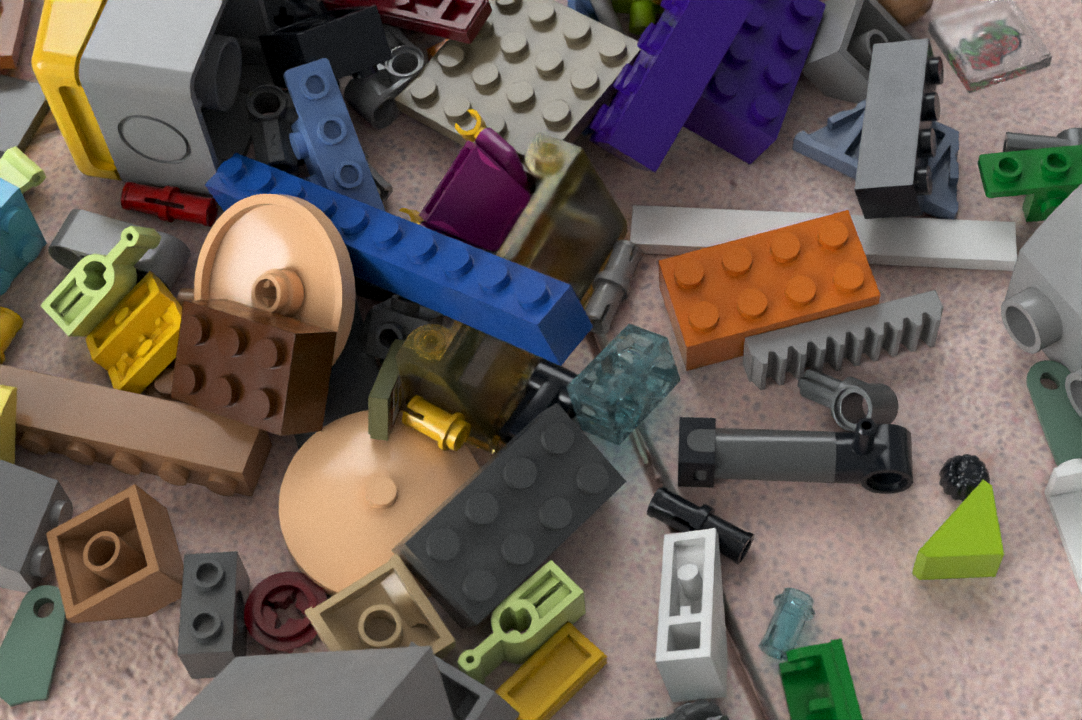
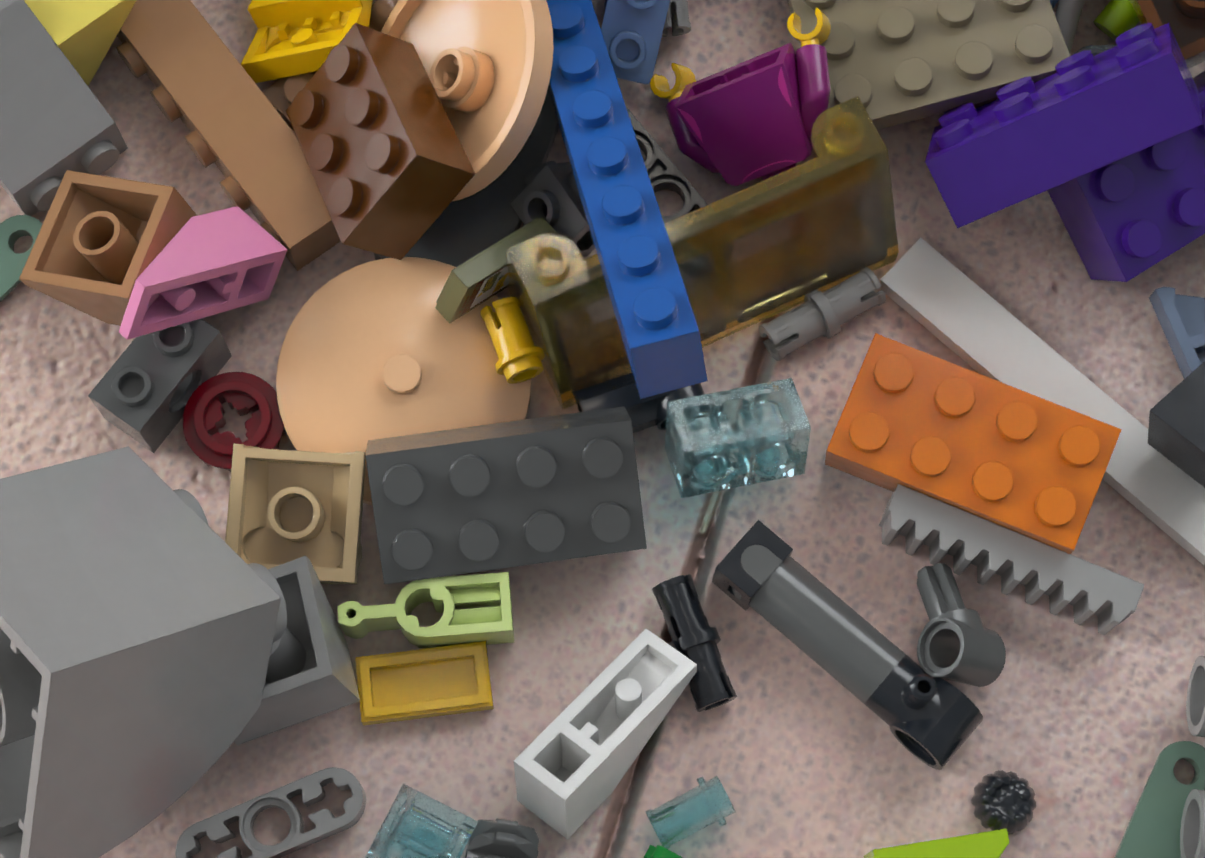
camera: 30 degrees right, 15 degrees up
(201, 519) = (205, 270): none -> bright pink slope

